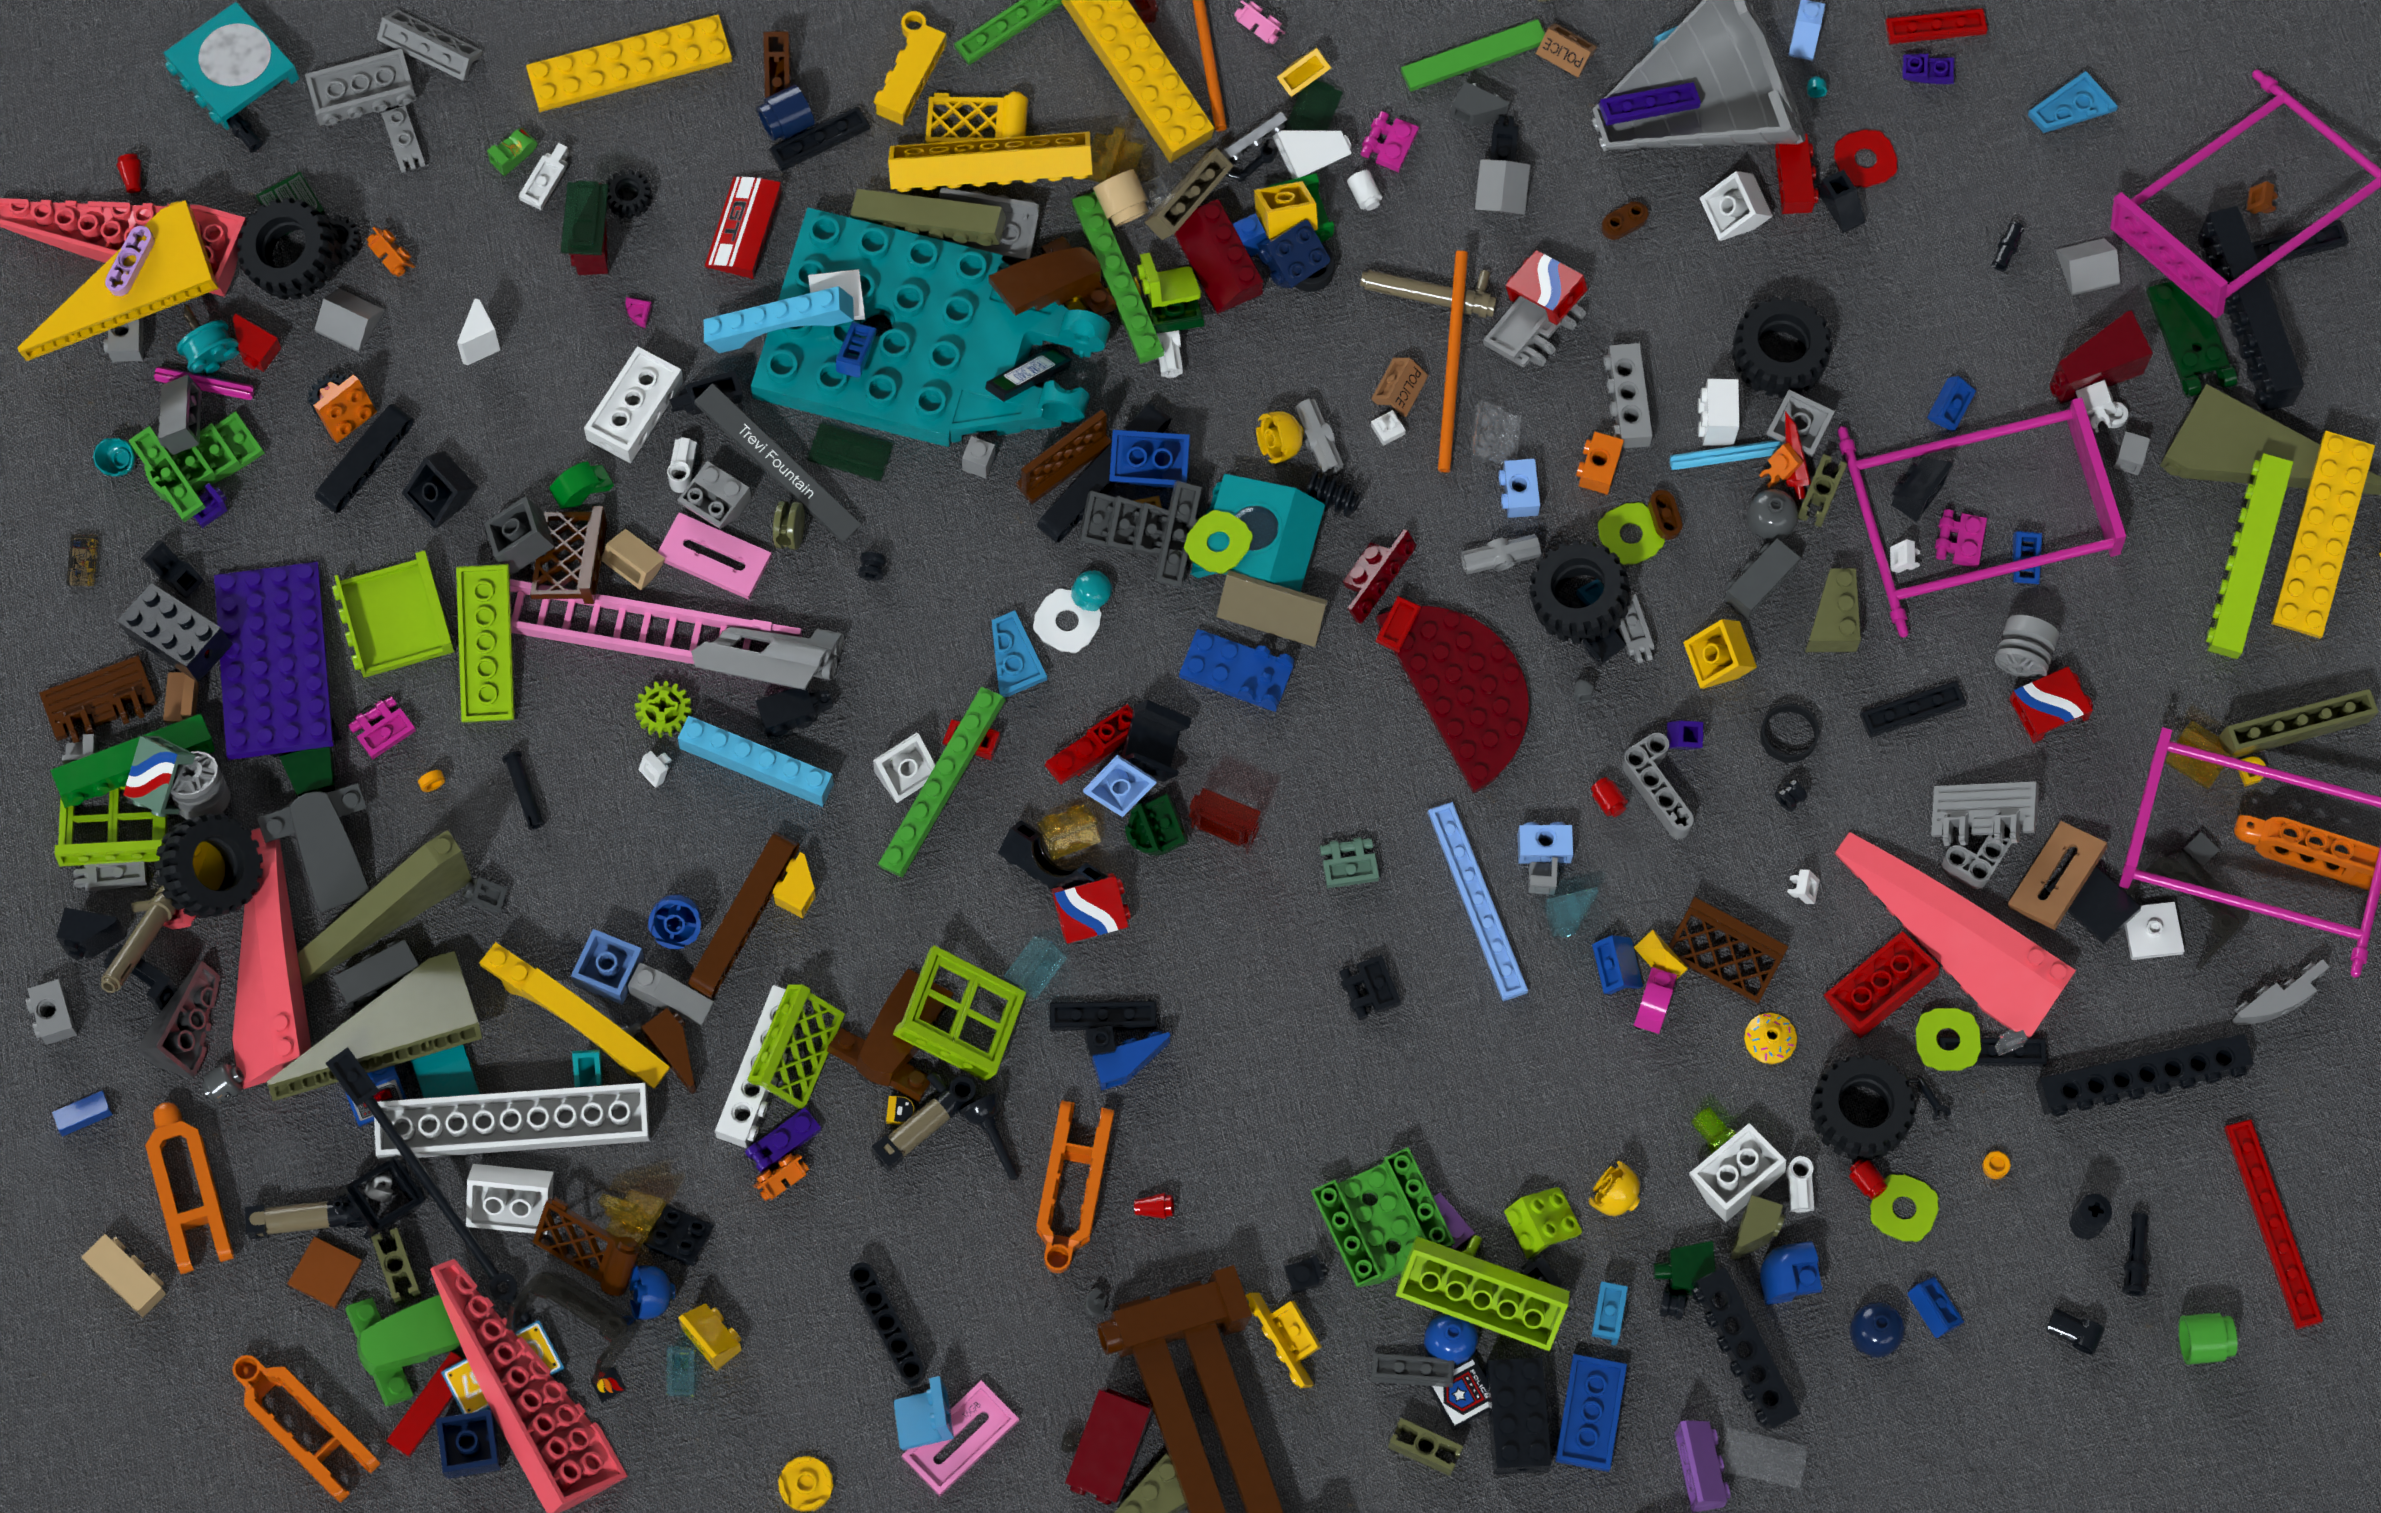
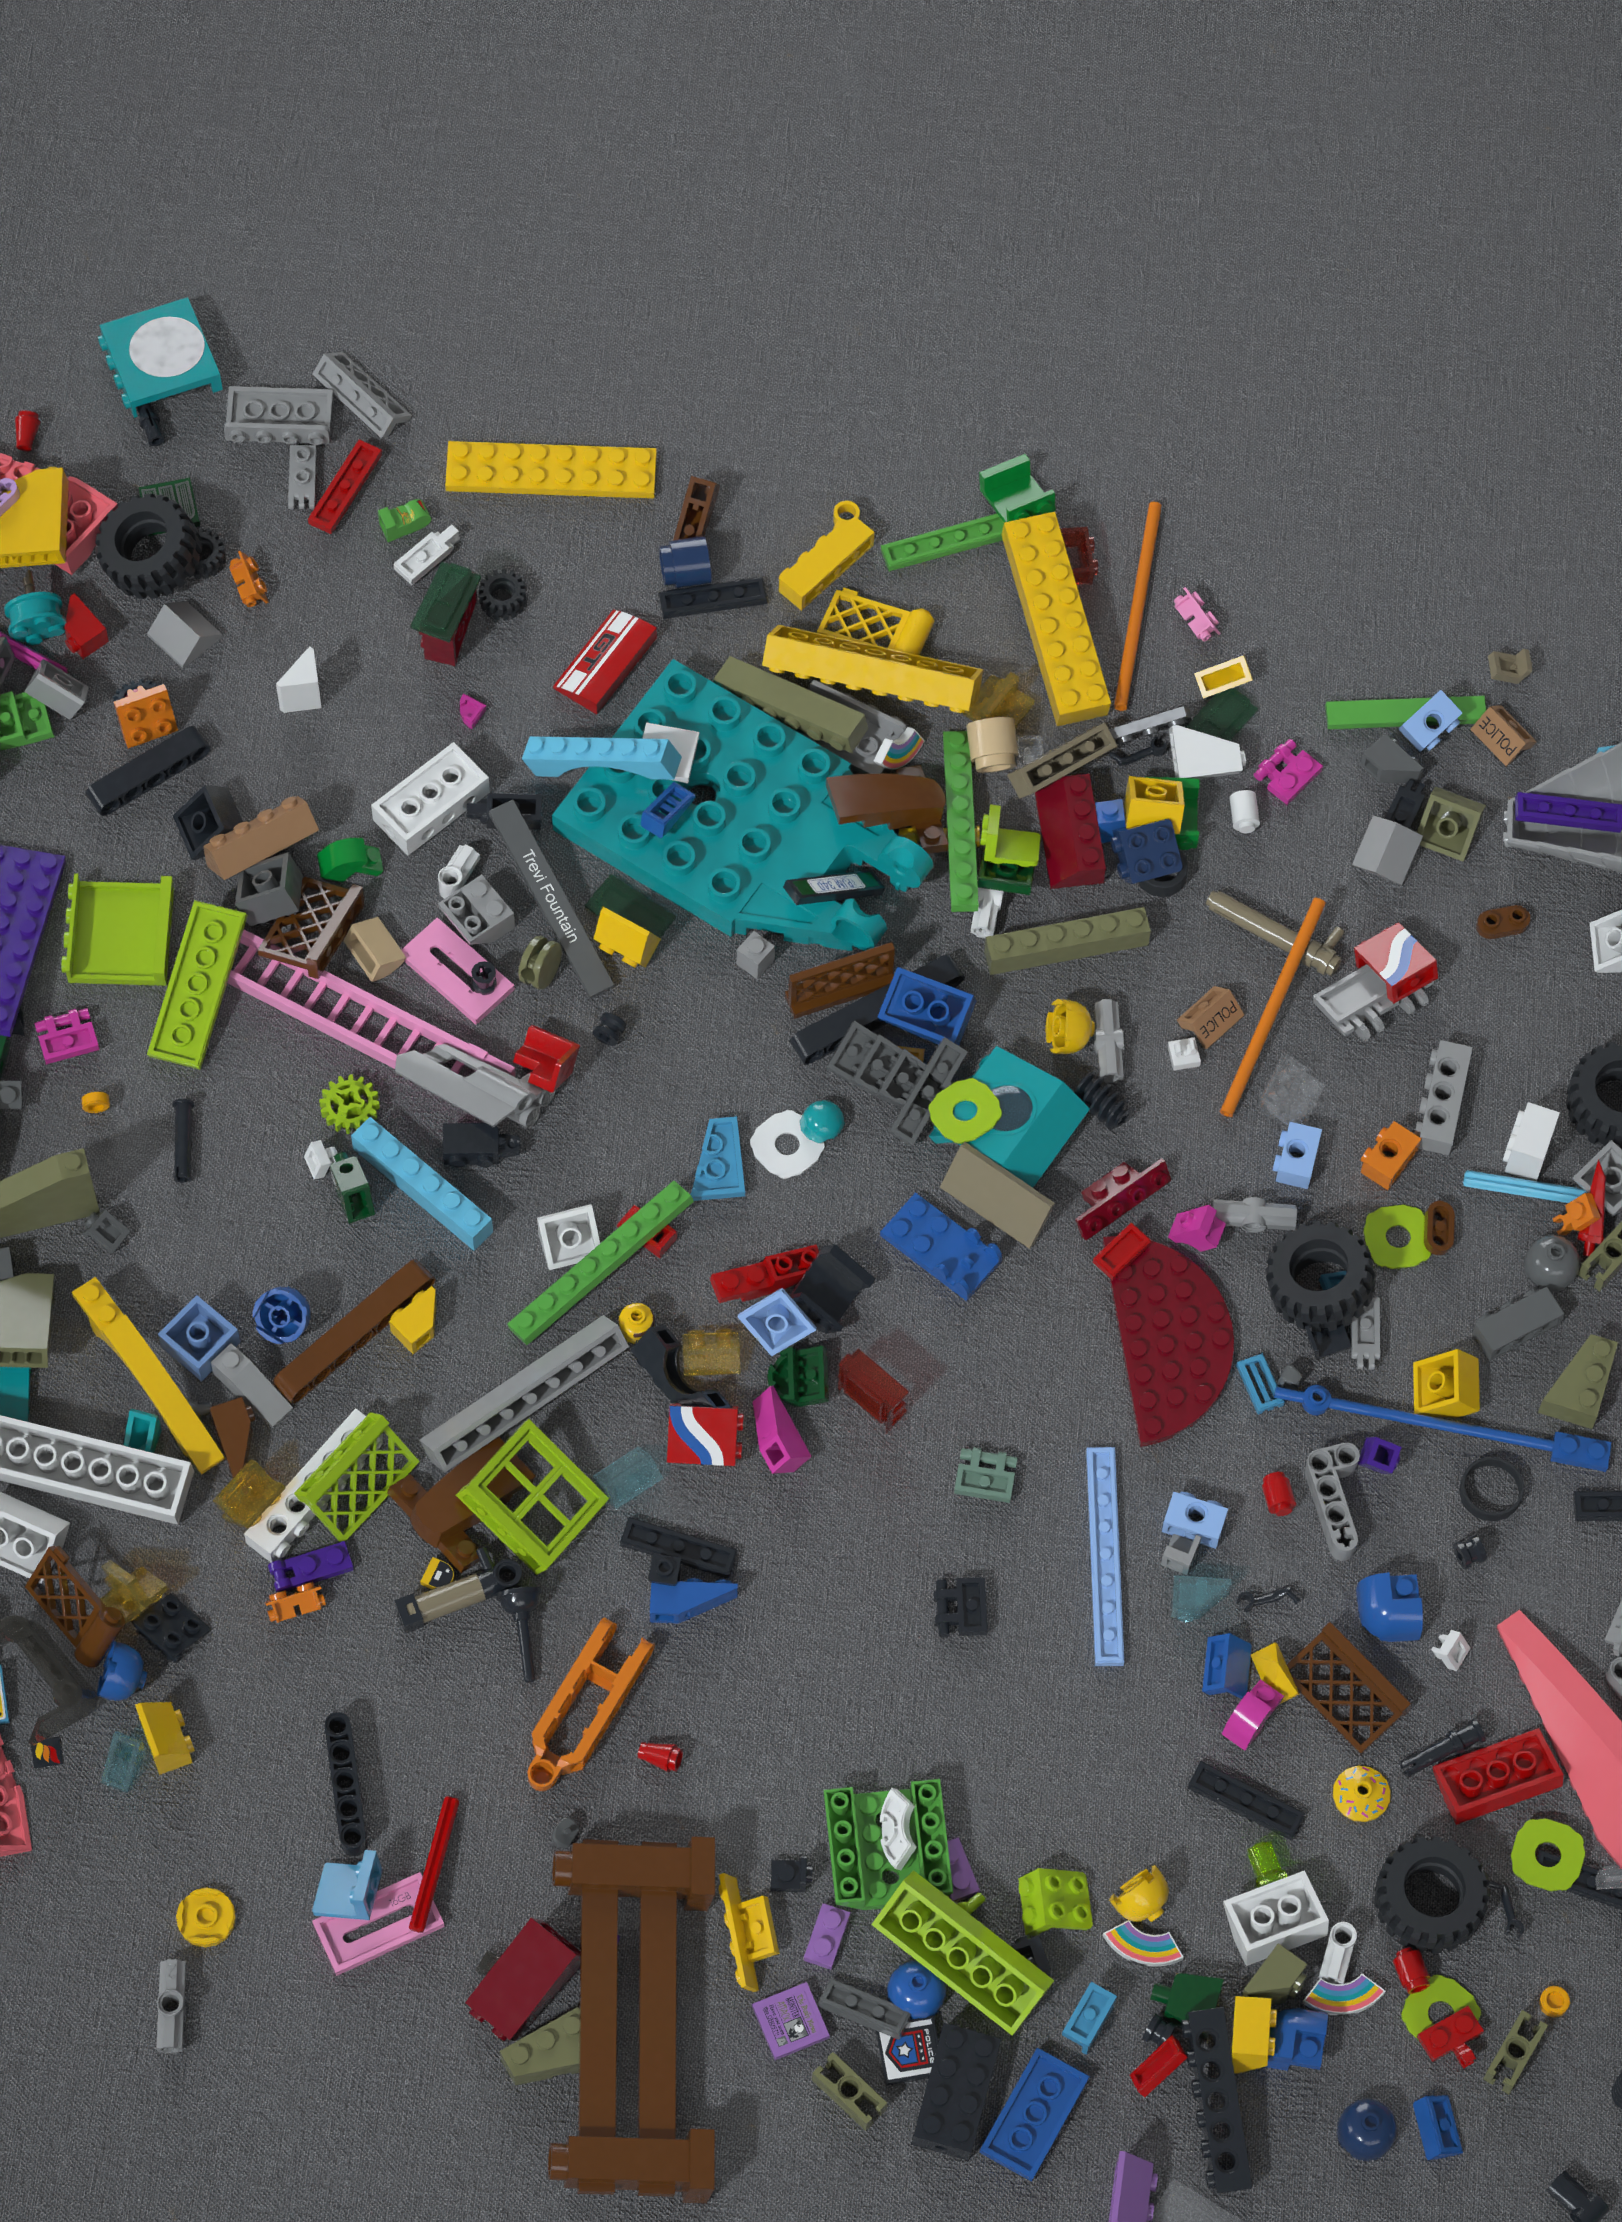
camera: 20 degrees right, 5 degrees down
(253, 409) = (57, 689): none -> light grey slope
(446, 136) = (345, 486): none -> red plate
(493, 490) = (260, 838): none -> medium nougat slope
(694, 784) = (348, 1180): none -> dark green torso
(707, 1095) = (248, 1495): none -> clear yellow bracket
(745, 548) = (489, 972): none -> black bush
(826, 608) = (548, 1056): none -> red panel
(857, 478) = (625, 938): none -> yellow slope
(917, 922) = (524, 1393): none -> light grey brick
(991, 1369) = (434, 1864): none -> red axle
(993, 826) = (635, 1321): none -> yellow head
(1041, 229) = (900, 751): none -> tile
(1154, 886) = (777, 1434): none -> dark pink slope
(1250, 357) = (1067, 941): none -> olive brick
(1351, 1402) = (790, 2021): none -> medium lavender tile
(1356, 1317) = (827, 1936): none -> medium lavender plate
(1384, 1204) = (895, 1828): none -> white tile
(1456, 582) = (1197, 1228): none -> dark pink brick
(1489, 66) = (1419, 733): none -> light blue brick
(1548, 145) = (1450, 823): none -> olive slope
(1572, 720) = (1268, 1404): none -> dark azure tile
(1631, 892) = (1269, 1598): none -> black piece
(1631, 1236) = (1143, 1947): none -> tile
(1674, 1077) = (1246, 1800): none -> black tile
(1683, 1335) = (1158, 2066): none -> red tile
(1740, 866) = (1390, 1607): none -> blue brick
(1754, 1279) = (1251, 2033): none -> yellow slope
(1817, 1222) = (1344, 1998): none -> tile
(1835, 967) = (1453, 1743): none -> black pin
(1838, 675) = (1564, 1447): none -> blue bar
(1921, 1224) = (1452, 2035): none -> red plate
(1987, 1213) = (1515, 2040): none -> olive piece

